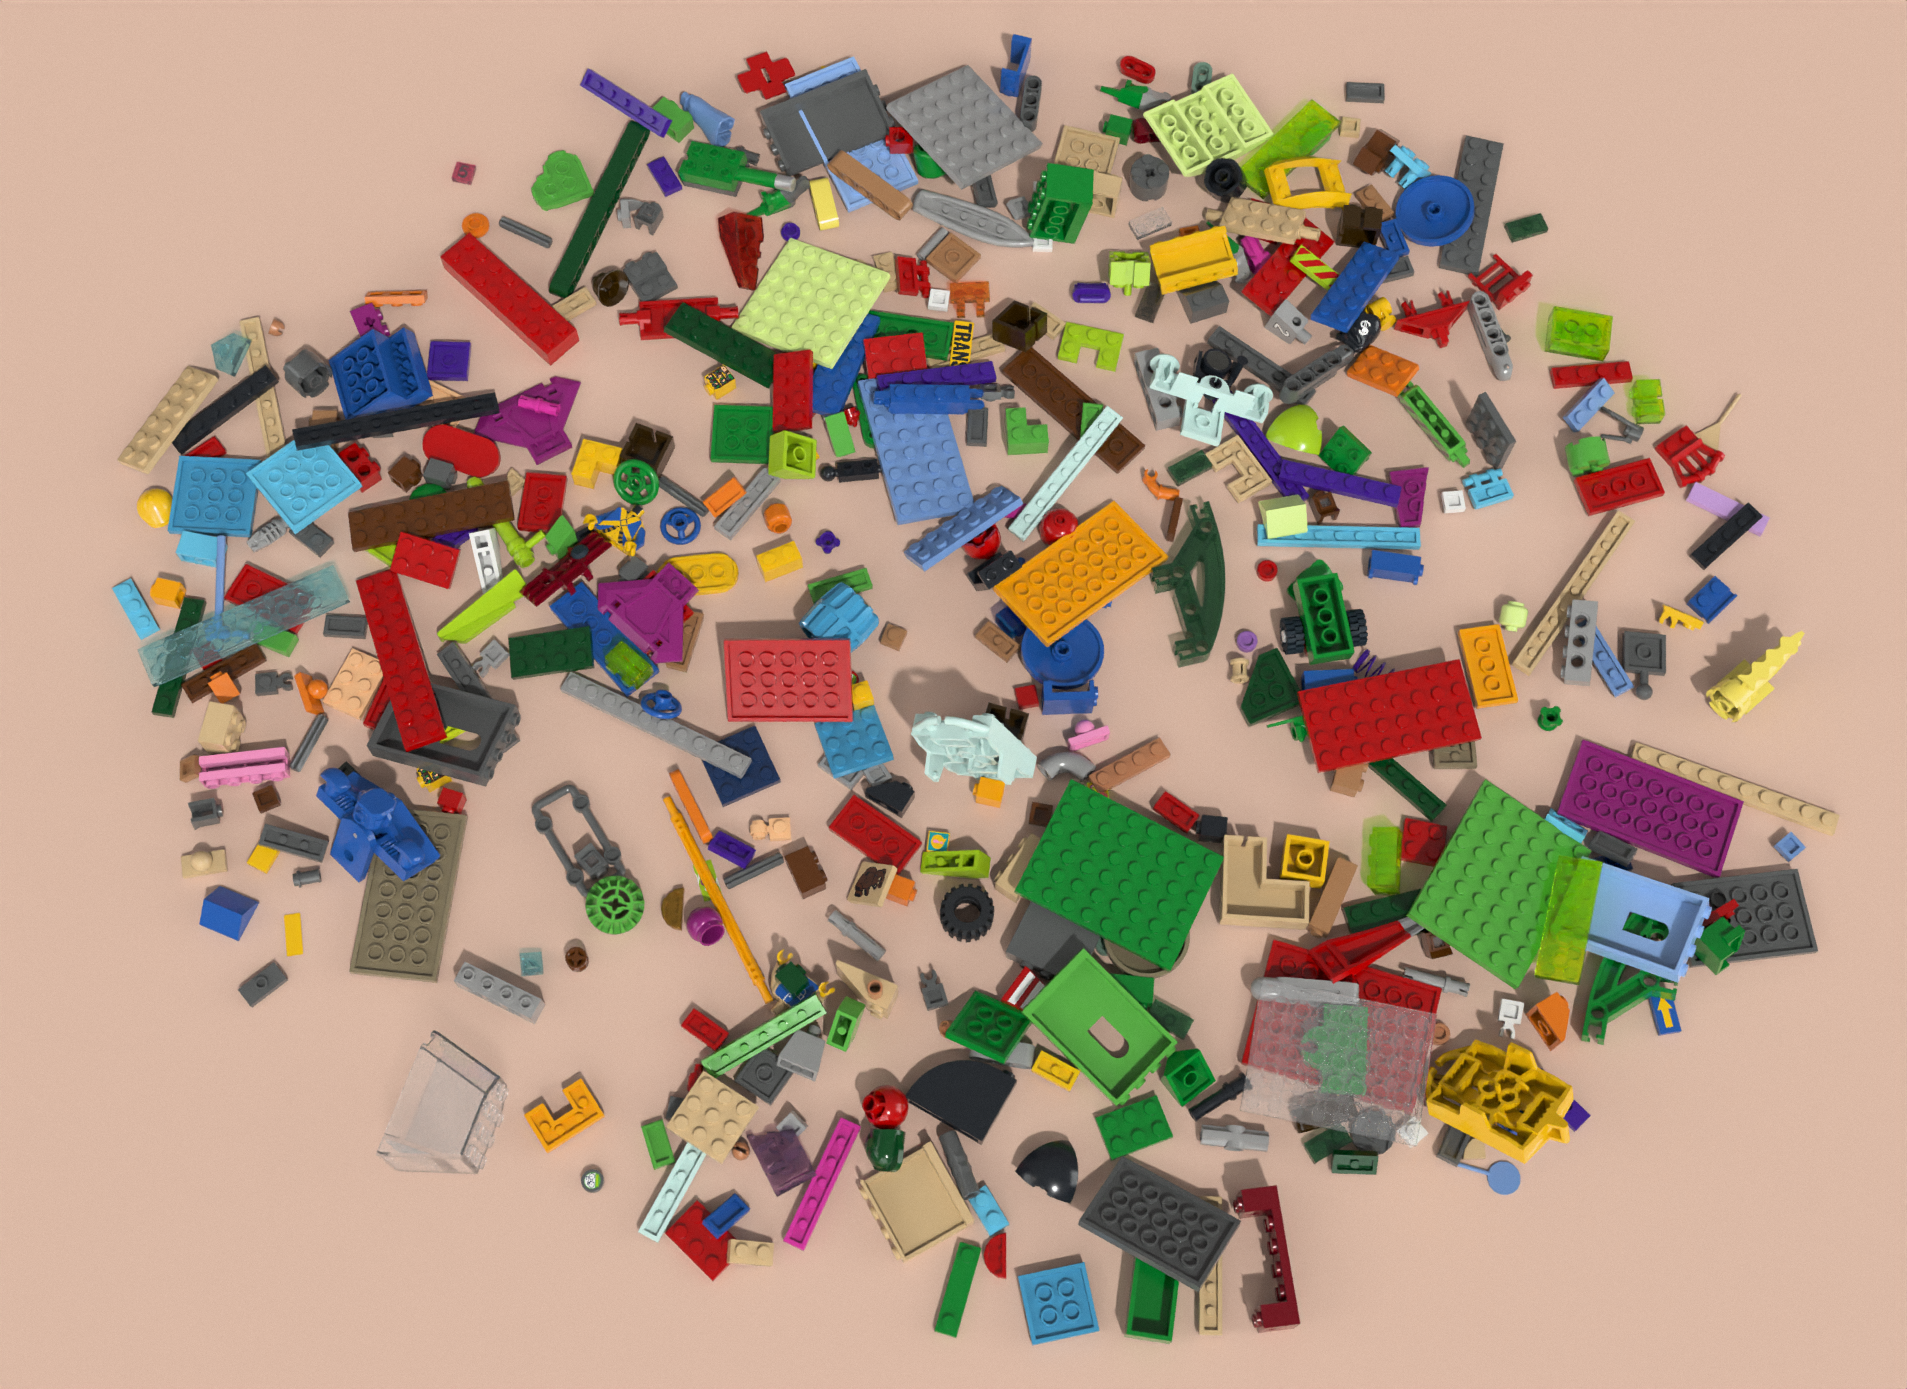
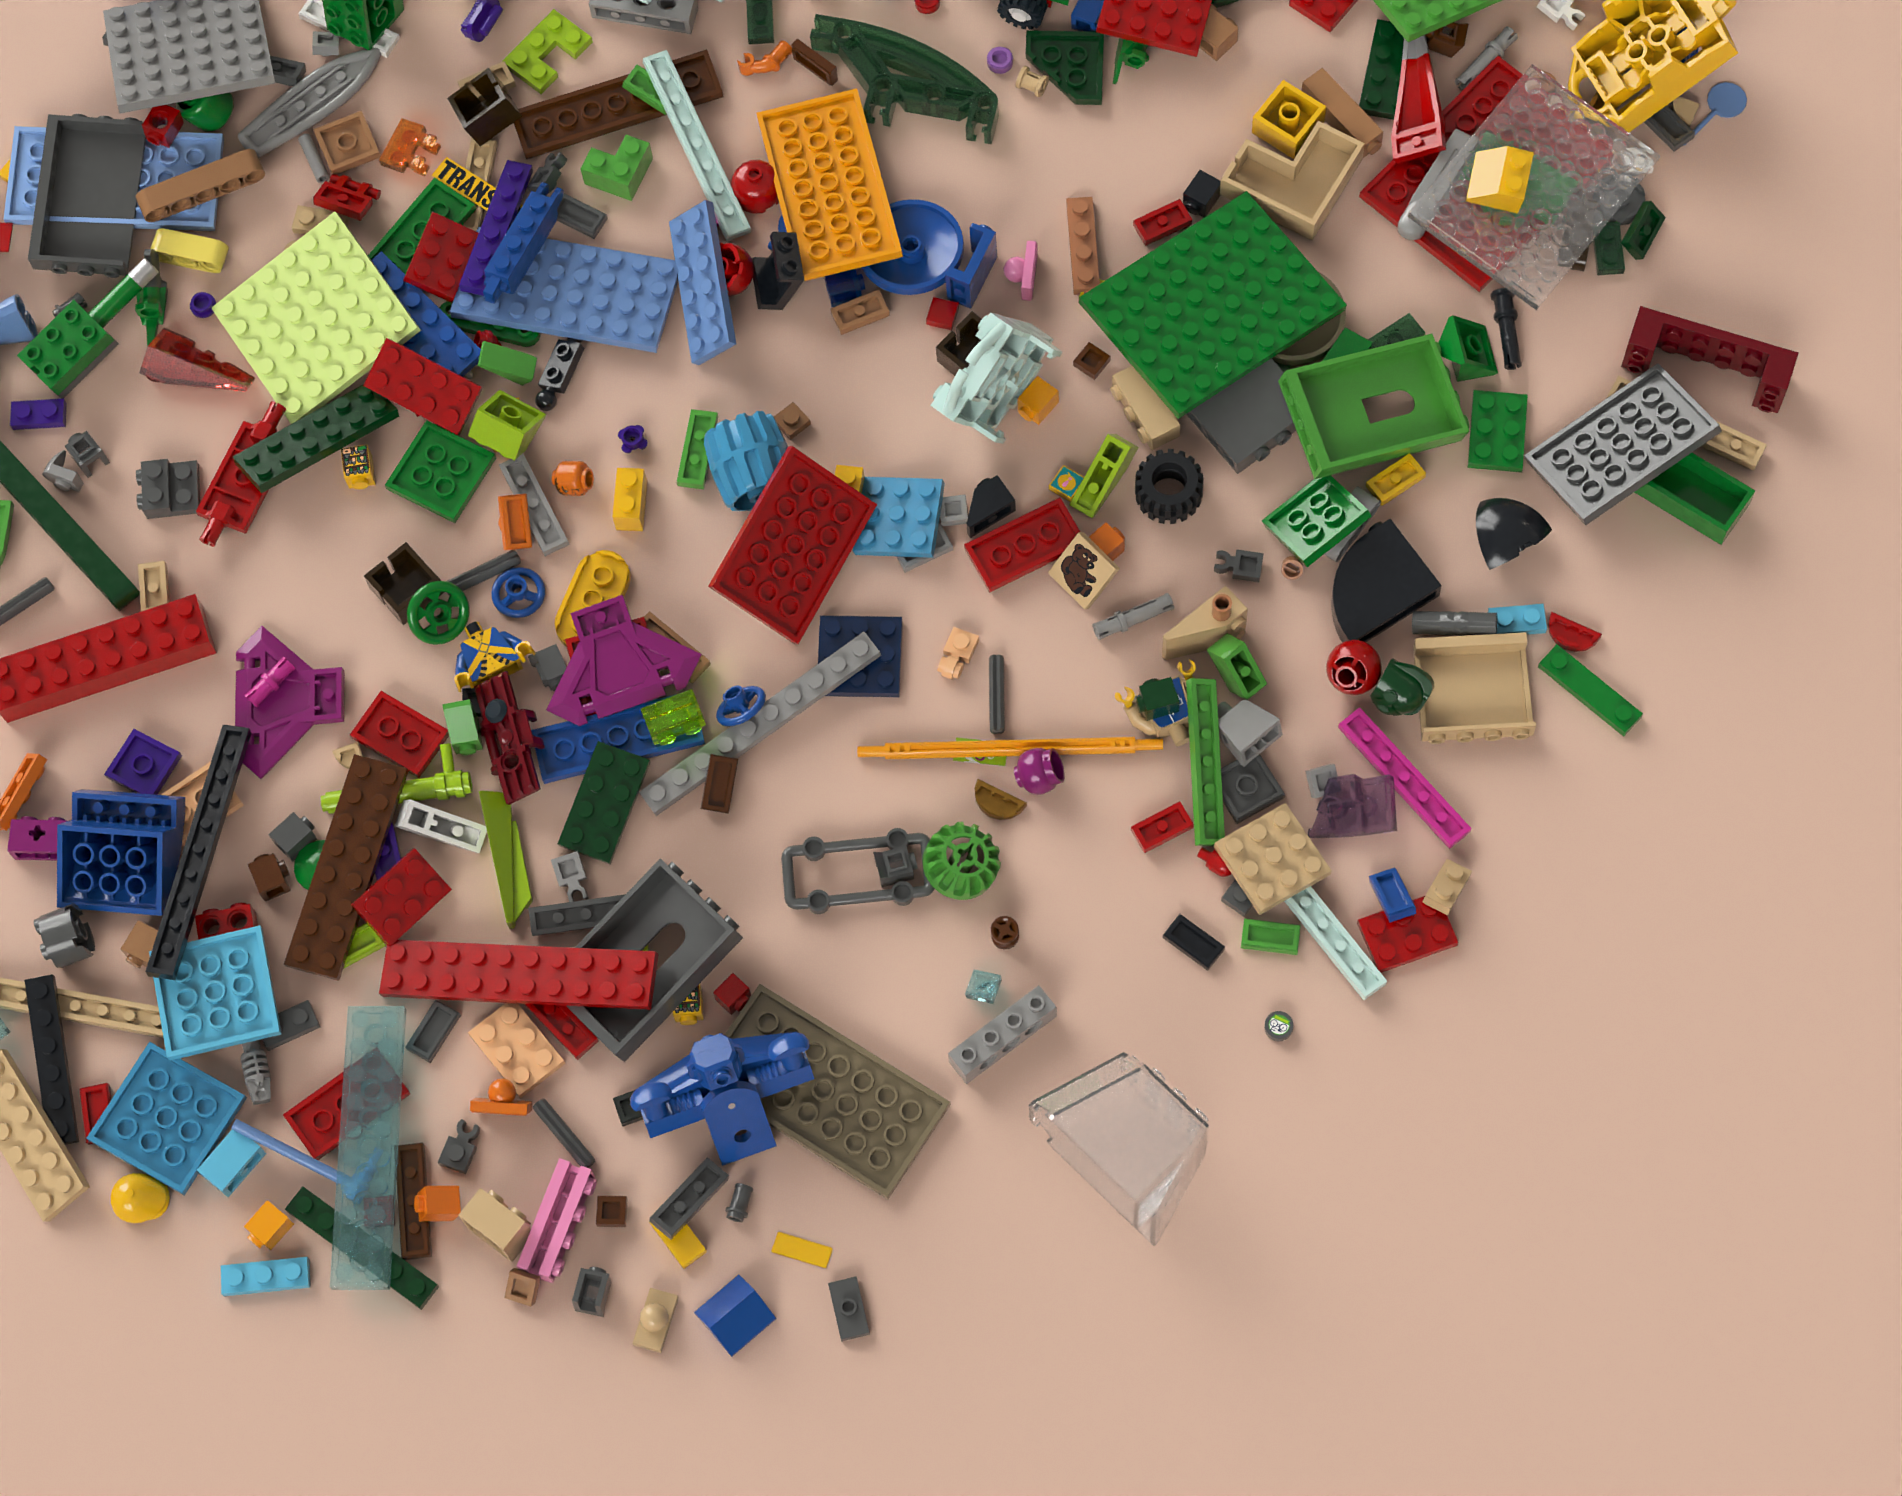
camera: 55 degrees left, 0 degrees up
(281, 643) = (413, 1115): bright green slope -> none
(464, 450) = (284, 788): red tile -> none
(583, 1115) = (1202, 1042): light orange plate -> none
(592, 459) = (378, 647): yellow brick -> none
(598, 719) = (719, 783): none -> reddish brown tile
(610, 287) = (154, 536): dark brown hat -> none
(630, 1092) = (1193, 942): none -> black tile
(690, 806) = (882, 728): orange beam -> none
(731, 849) = (960, 705): dark purple plate -> none
(739, 1155) = (1327, 852): nougat hinge -> none
(806, 872) = (1030, 637): reddish brown brick -> none
(939, 300) = (392, 182): white plate -> none
(1023, 989) = (1288, 468): torso -> none
(1058, 1303) = (1655, 593): dark azure plate -> none
(1066, 762) = (1047, 303): light grey cylinder -> none
(1234, 1138) = (1559, 334): light grey piece -> none
(1324, 1032) = (1500, 178): none -> yellow slope
(1385, 860) = (1328, 41): clear neon green brick -> none

